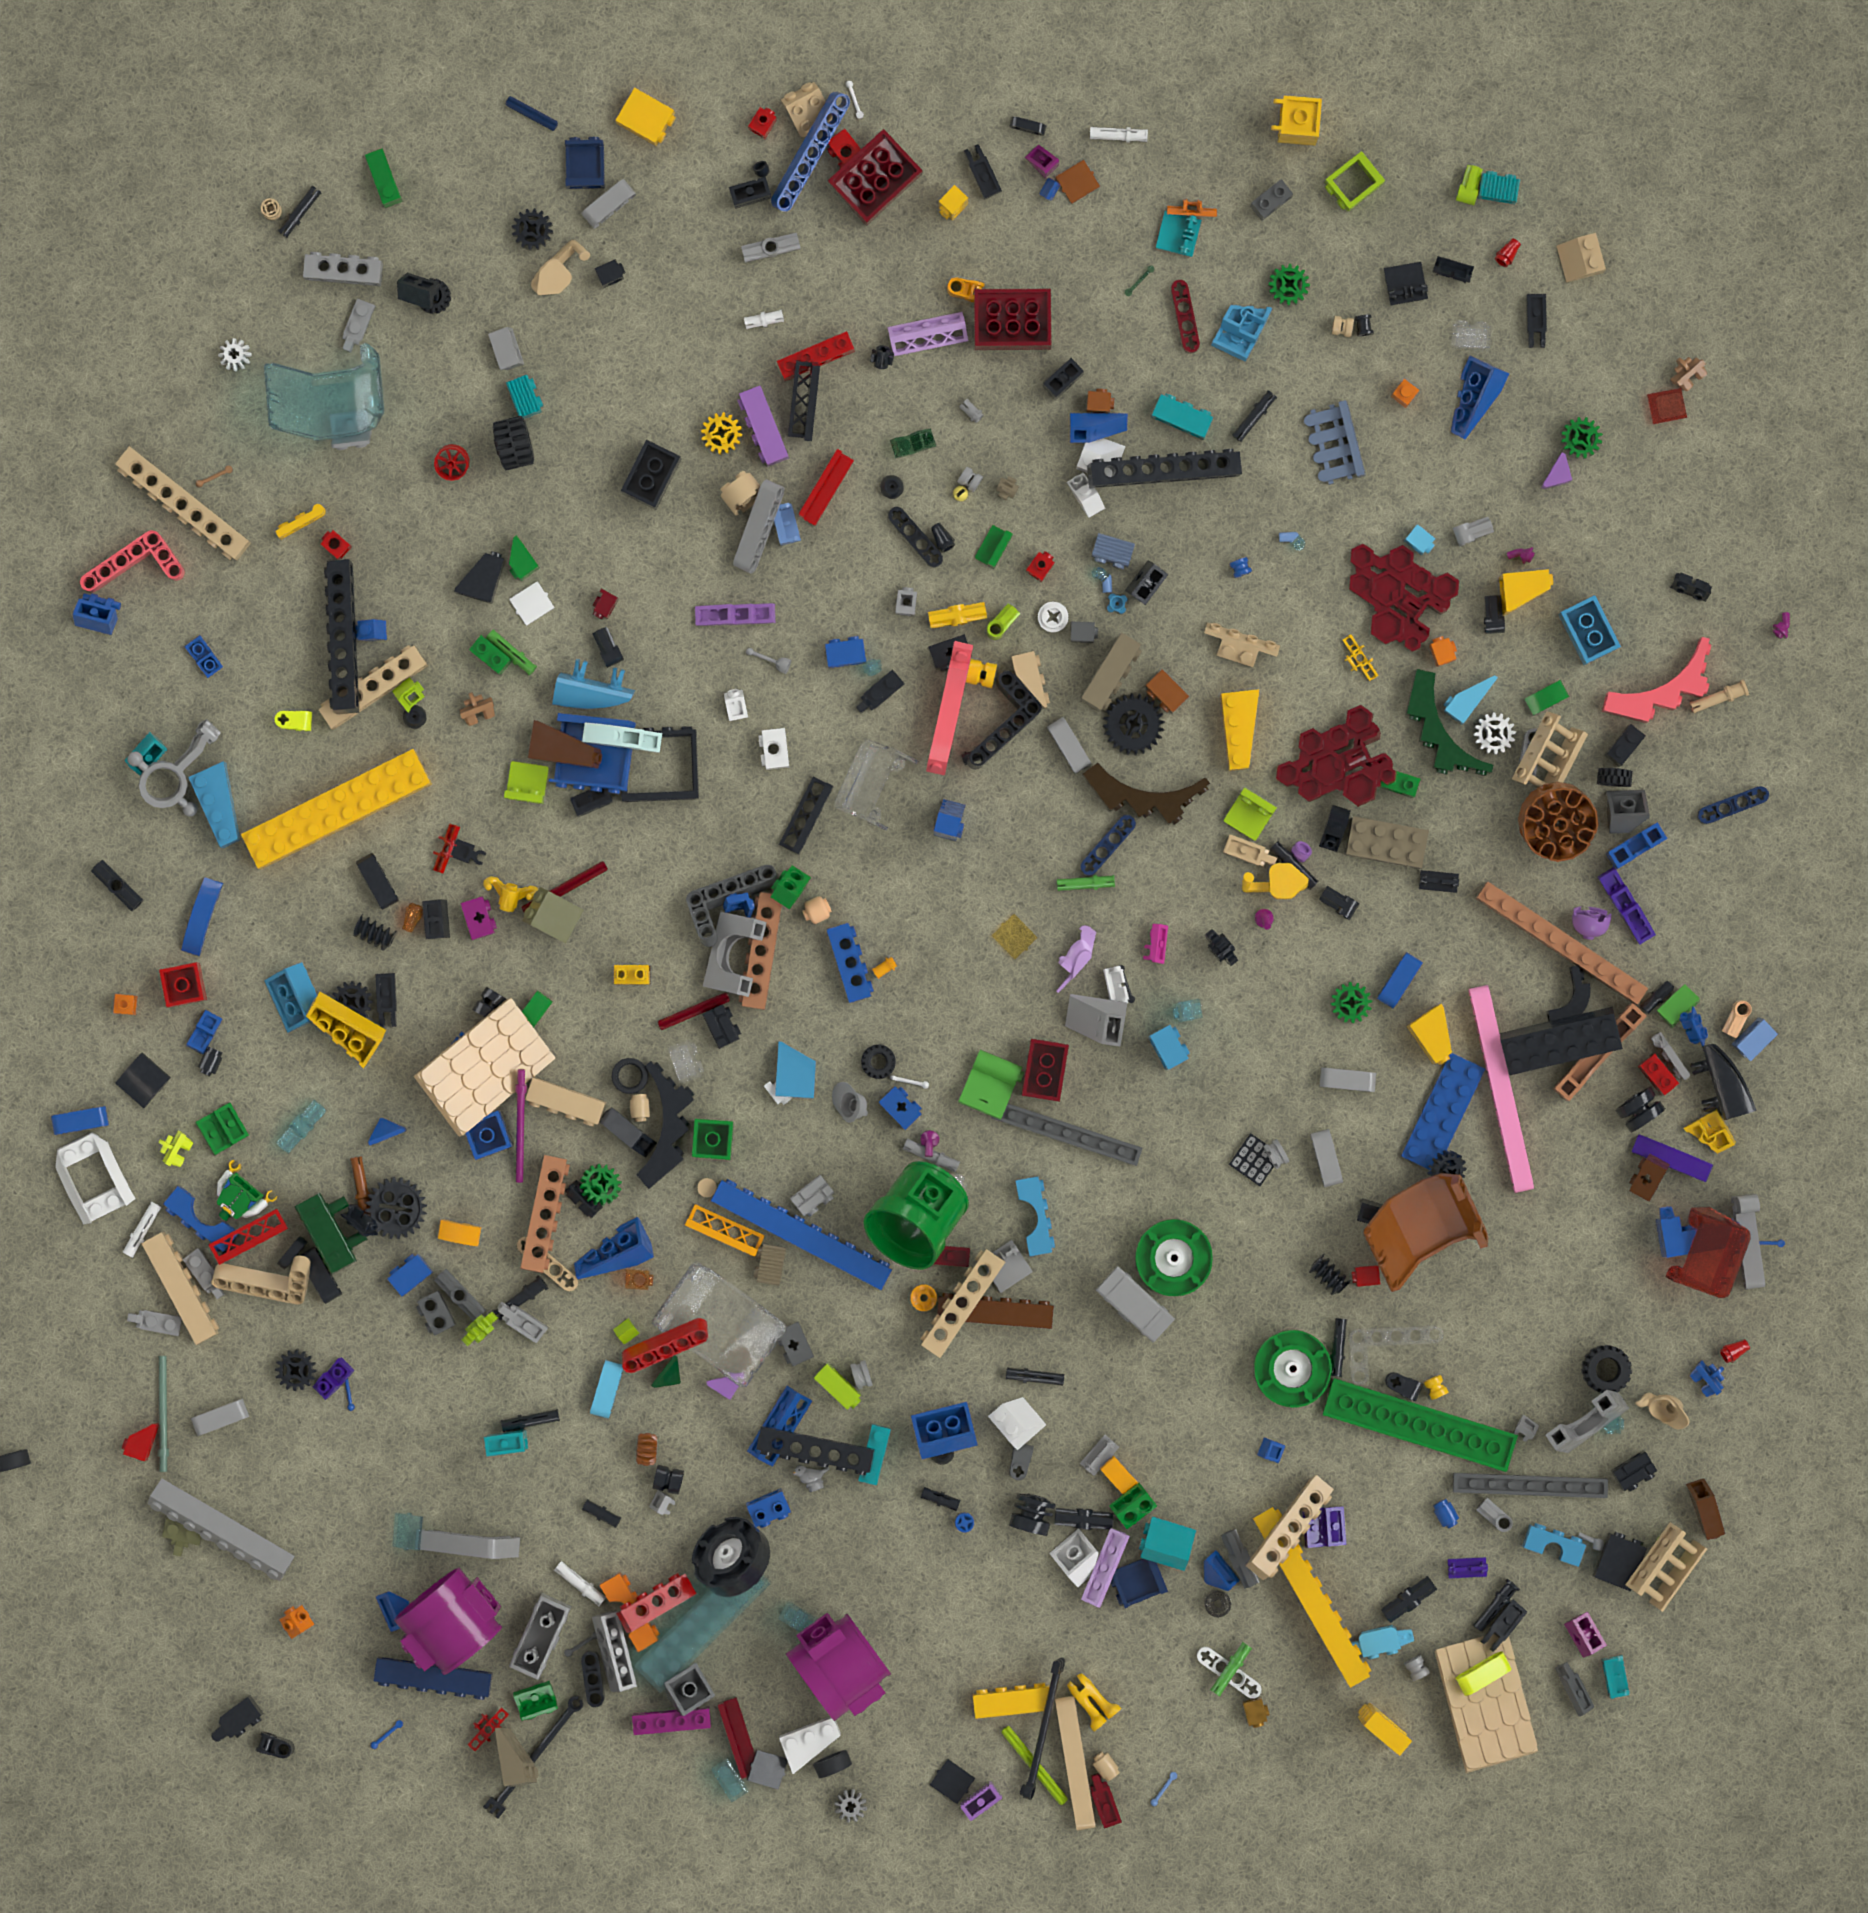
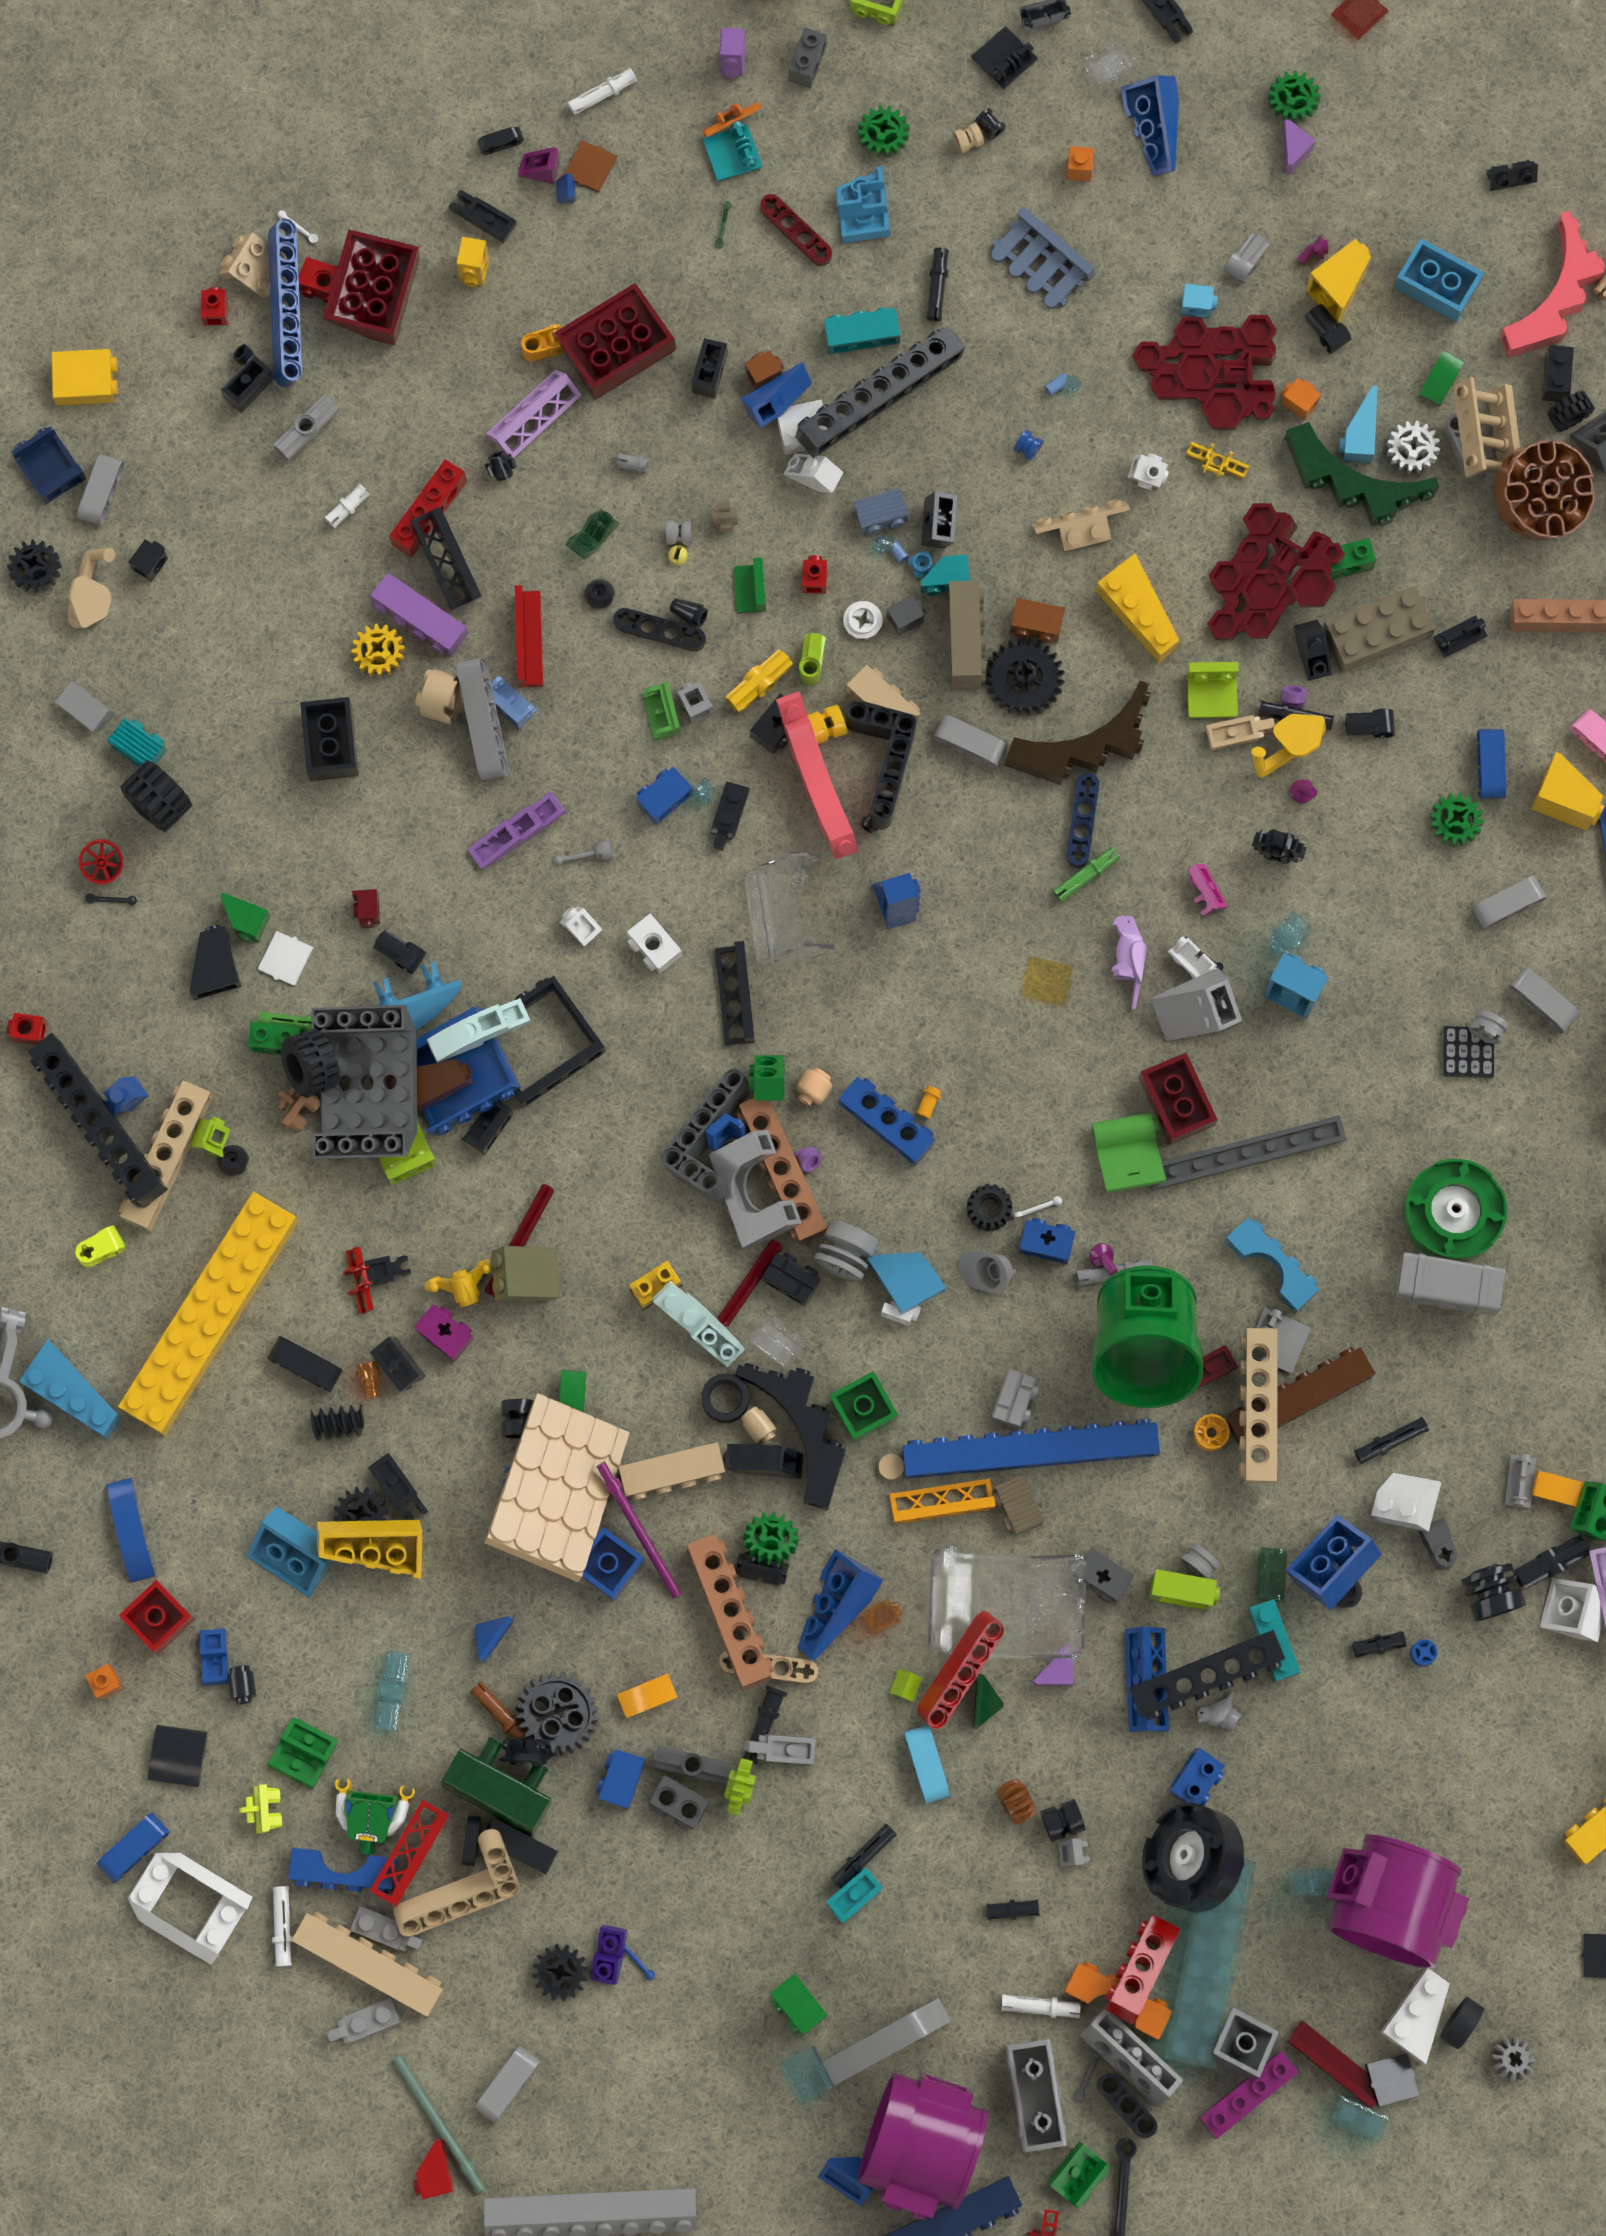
camera: 35 degrees left, 10 degrees down
(427, 1487) = (798, 2005): none -> green brick
(431, 481) = (90, 898): none -> black hinge
(500, 689) = (310, 1063): none -> black tyre
(509, 745) = (372, 1121): none -> dark grey slope
(644, 1016) = (699, 1322): none -> light aqua slope
(766, 1032) = (844, 1255): none -> light grey wheel
(782, 954) = (808, 1158): none -> medium lavender tile
(880, 594) = (661, 711): none -> bright green hinge
(901, 1412) = (1271, 1574): none -> clear green hinge
(1128, 622) = (947, 569): none -> teal slope
(1222, 165) = (732, 52): none -> medium lavender brick
(1307, 637) = (1140, 471): none -> white brick

